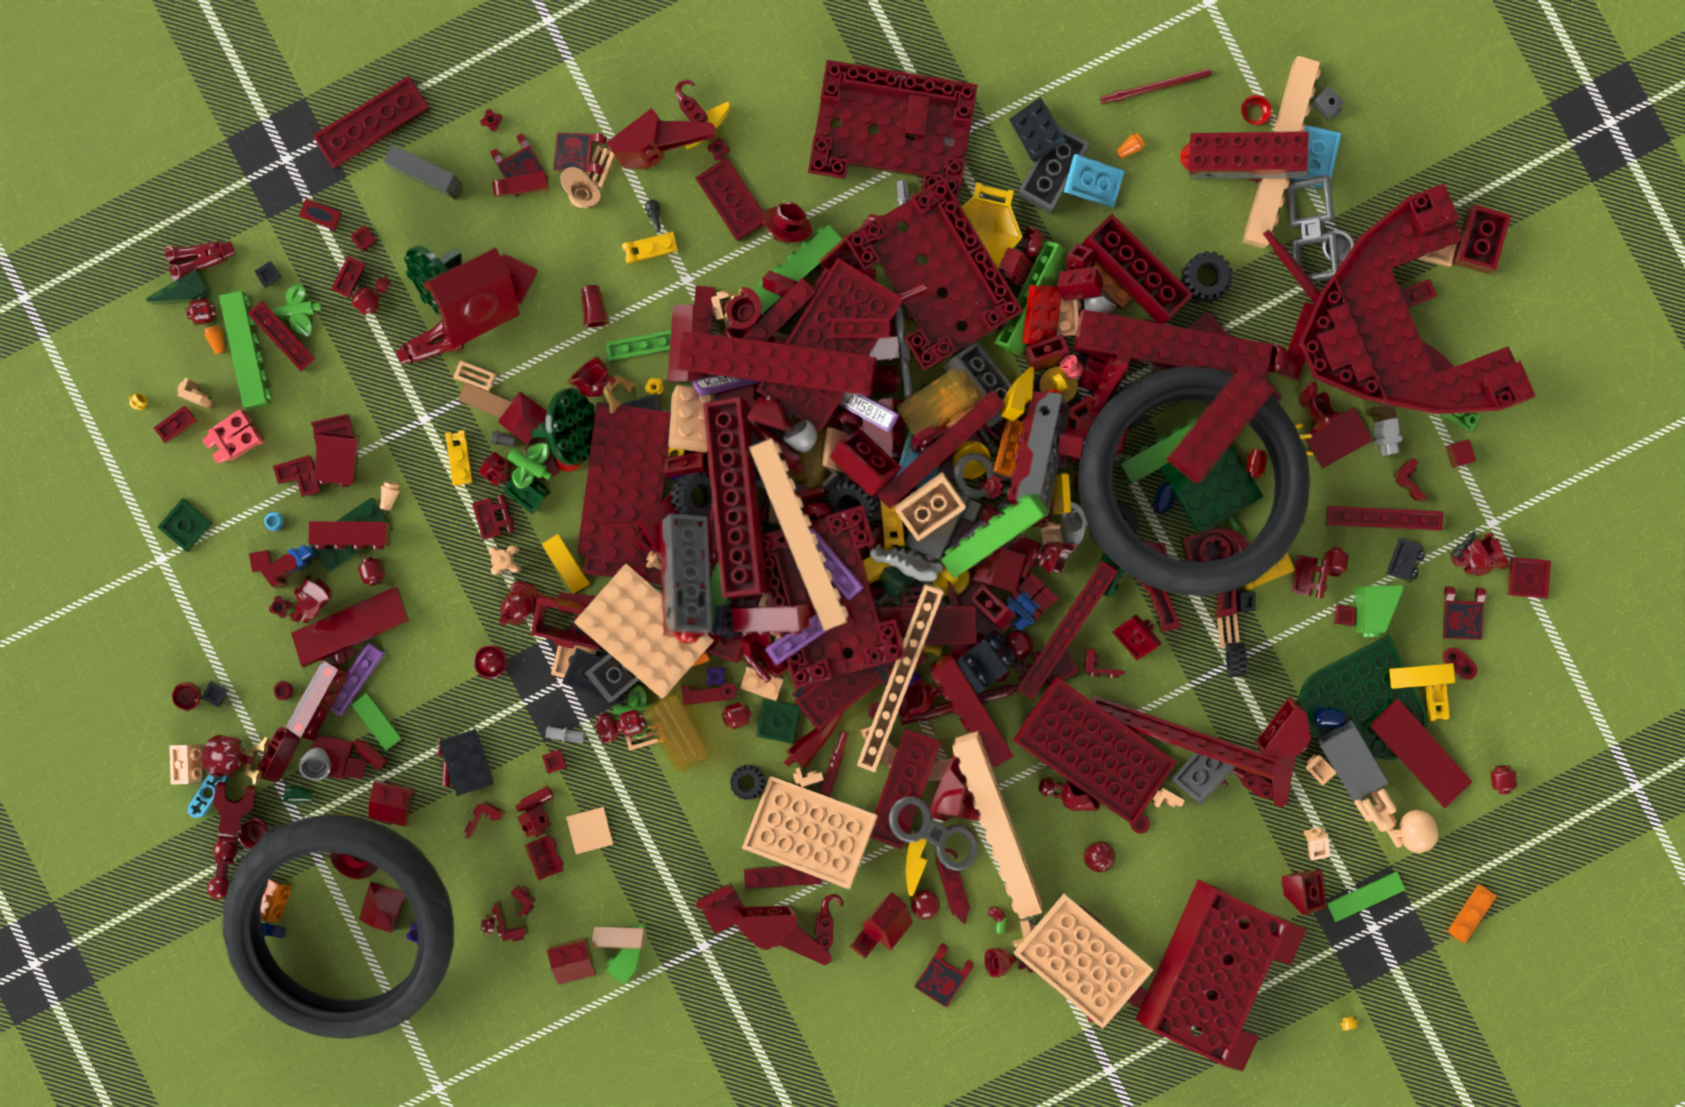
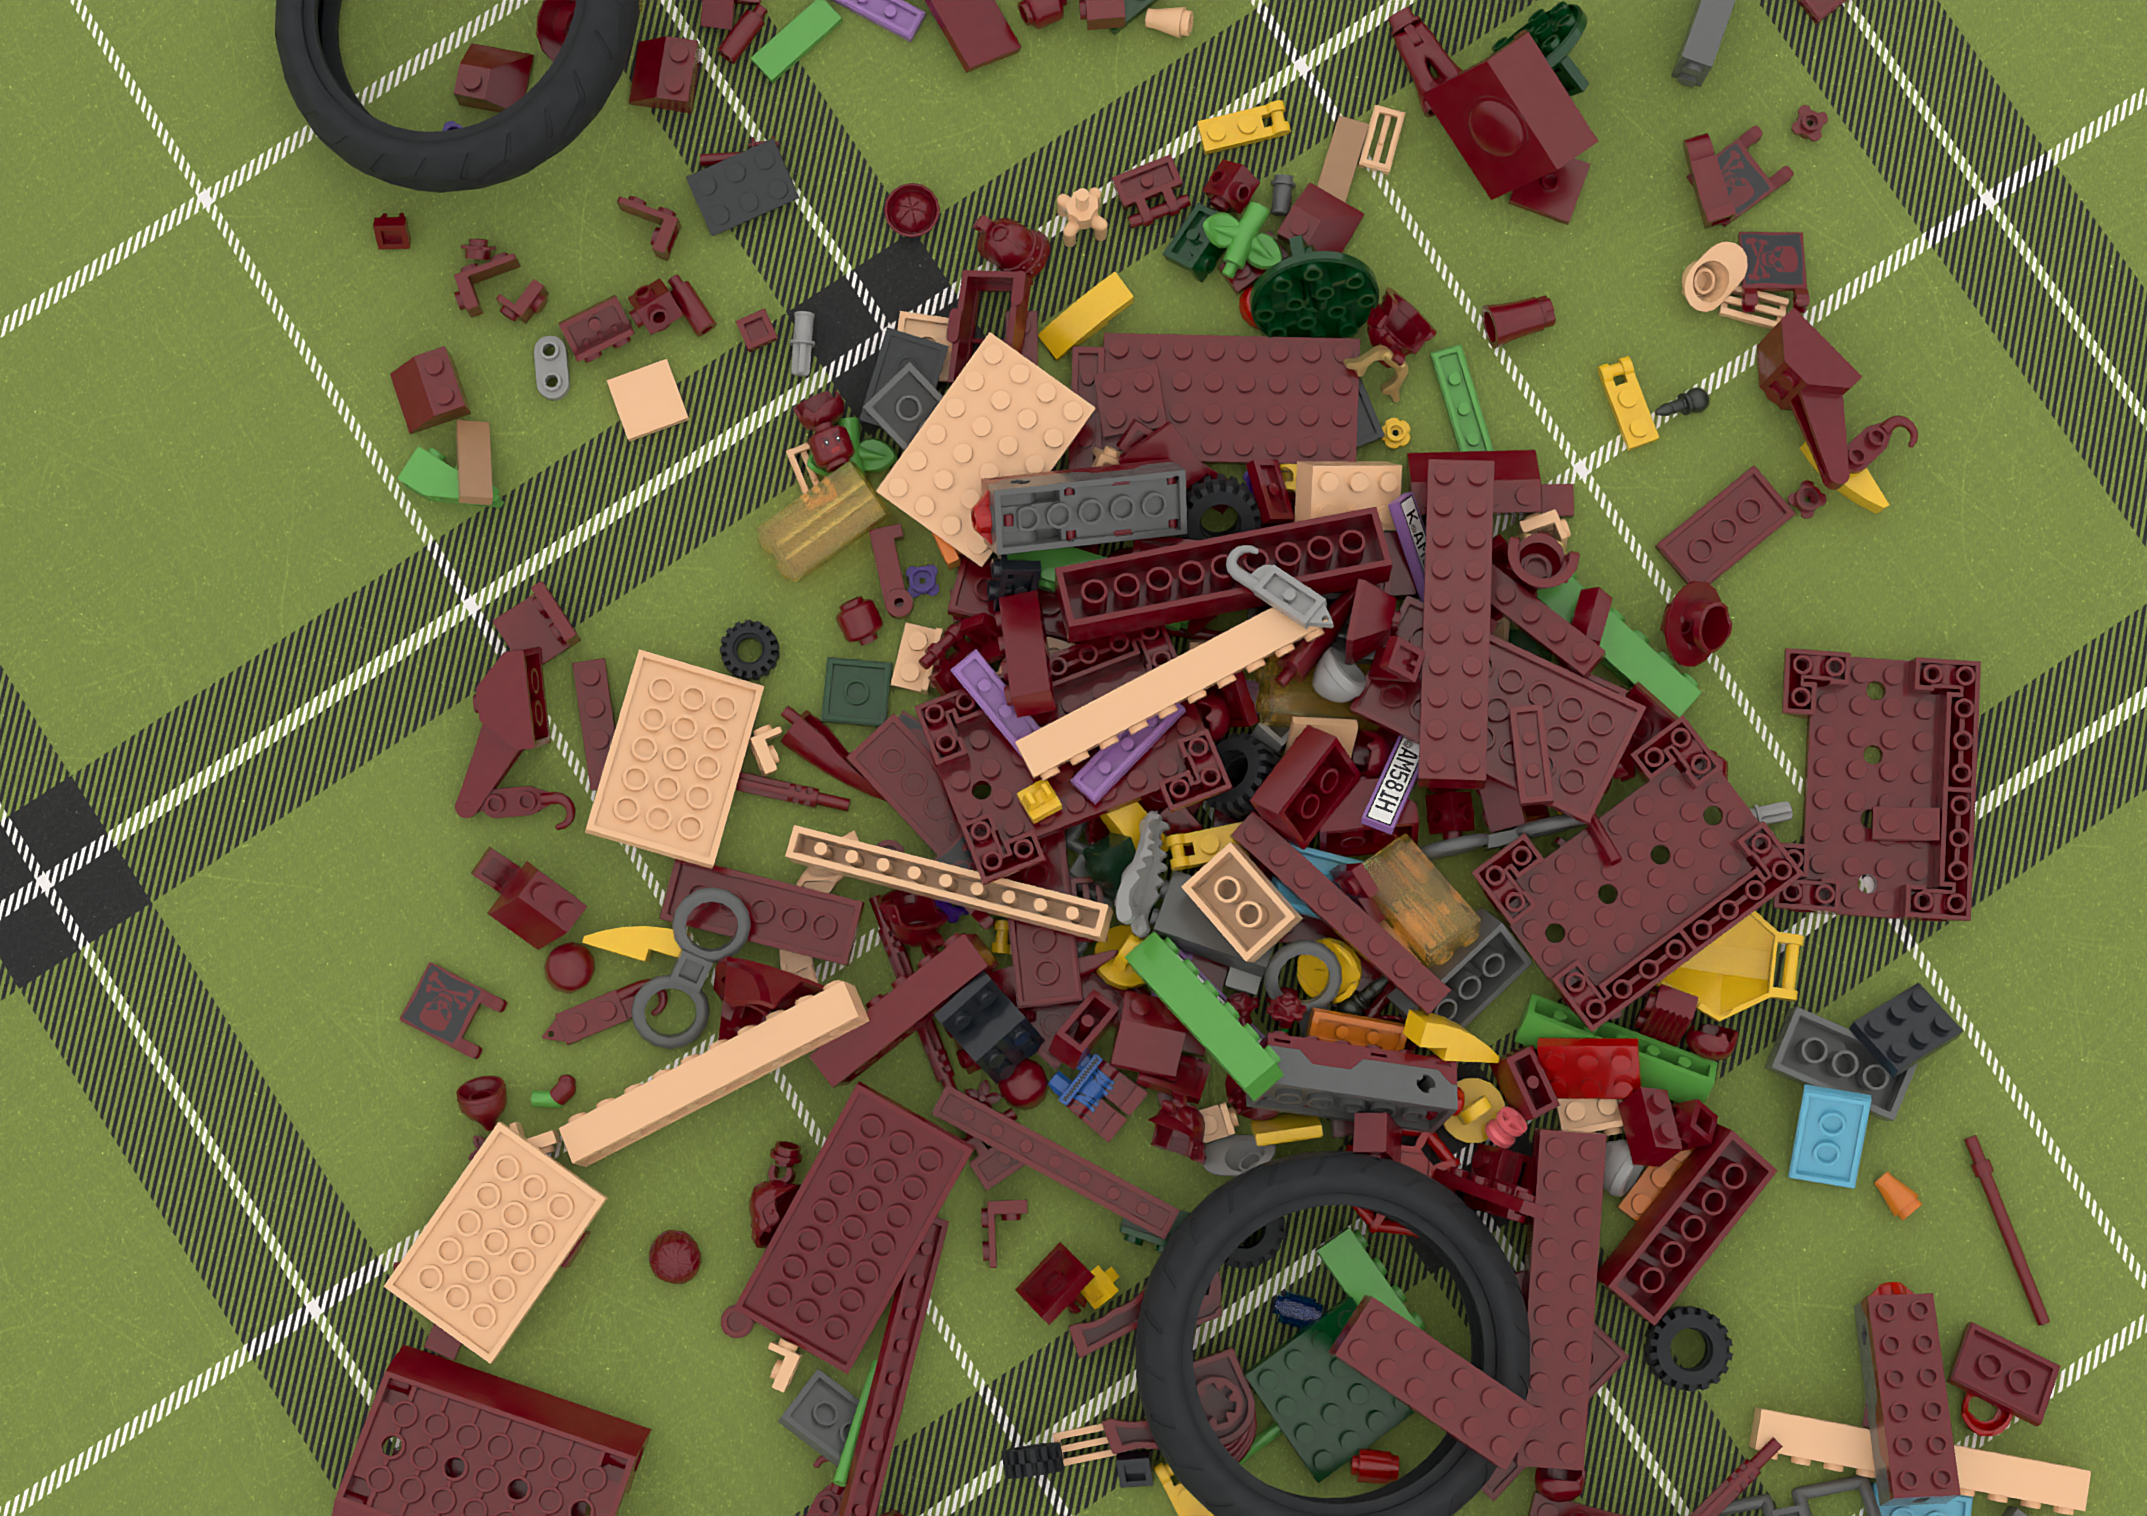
camera: 80 degrees right, 5 degrees down
(471, 976) = (392, 232): none -> dark red tile
(564, 886) = (552, 367): none -> light grey plate
(750, 464) = (1281, 591): none -> light grey plate
(797, 401) = (1397, 661): none -> dark red bracket
(858, 619) = (1039, 801): none -> yellow tile
(1141, 610) = (1101, 1286): none -> yellow tile
(1232, 769) = (847, 1455): none -> bright green bar
(1237, 98) = (2003, 1374): none -> dark red tile

